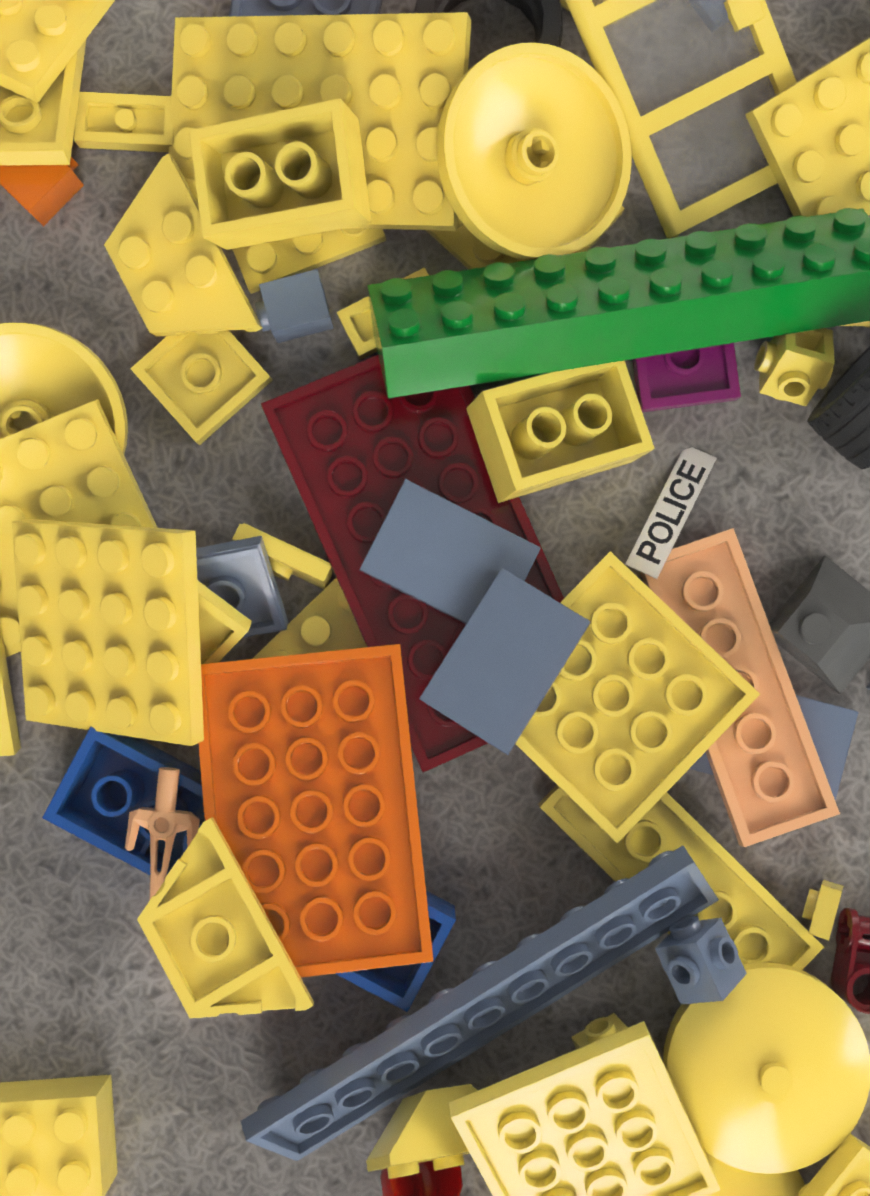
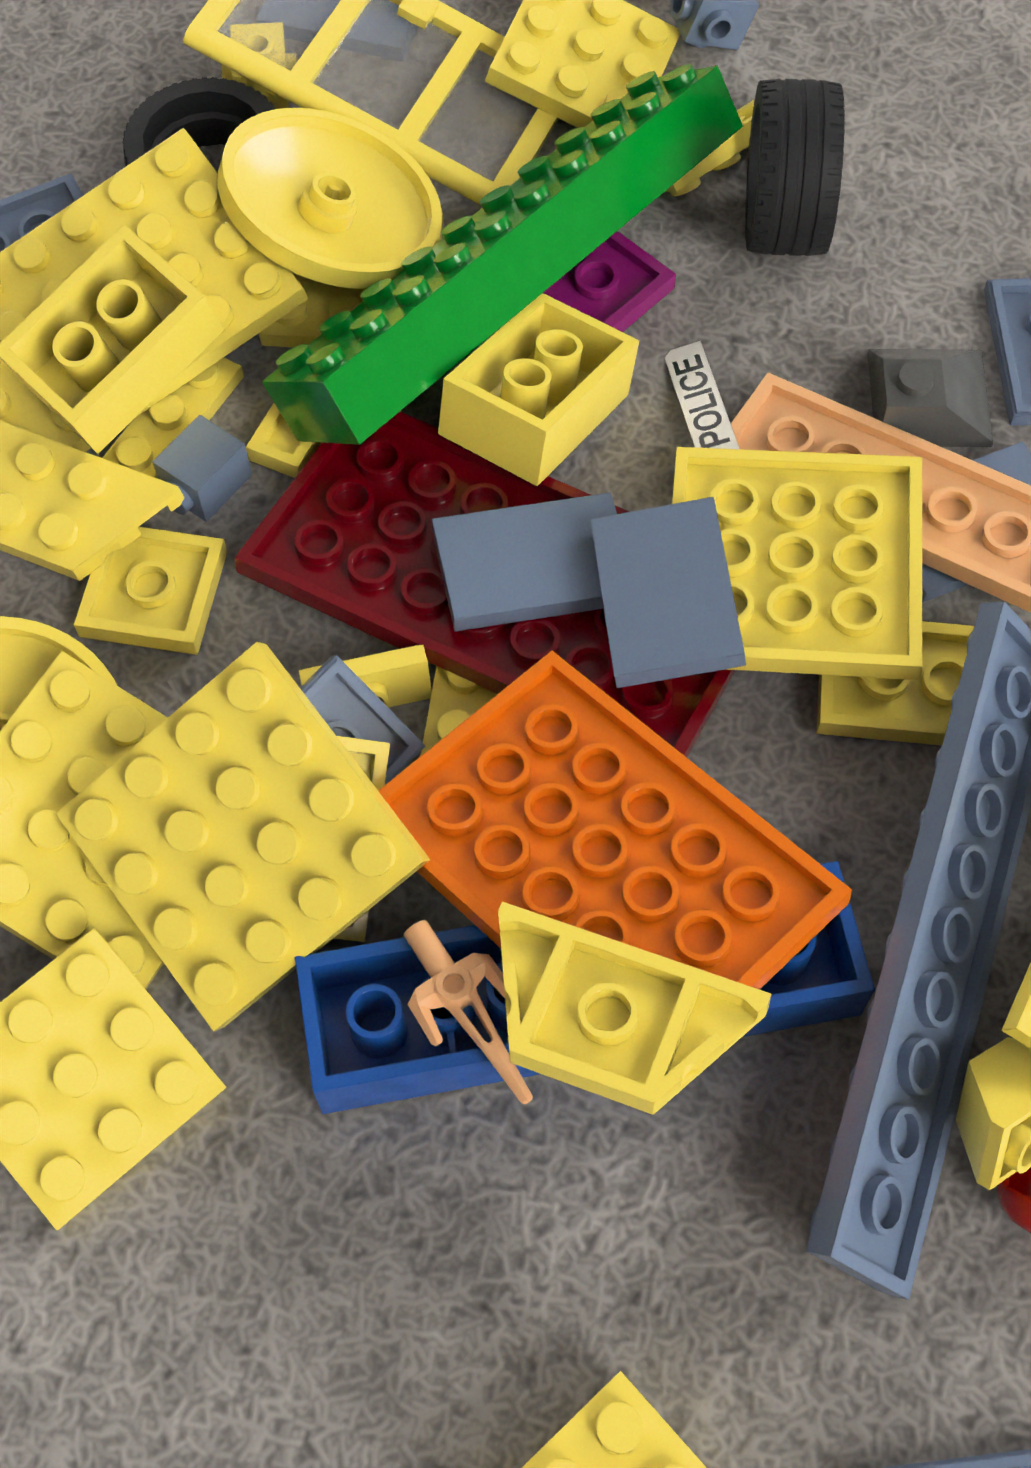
camera: 40 degrees left, 25 degrees down
(796, 365) = (698, 217): light yellow brick -> none

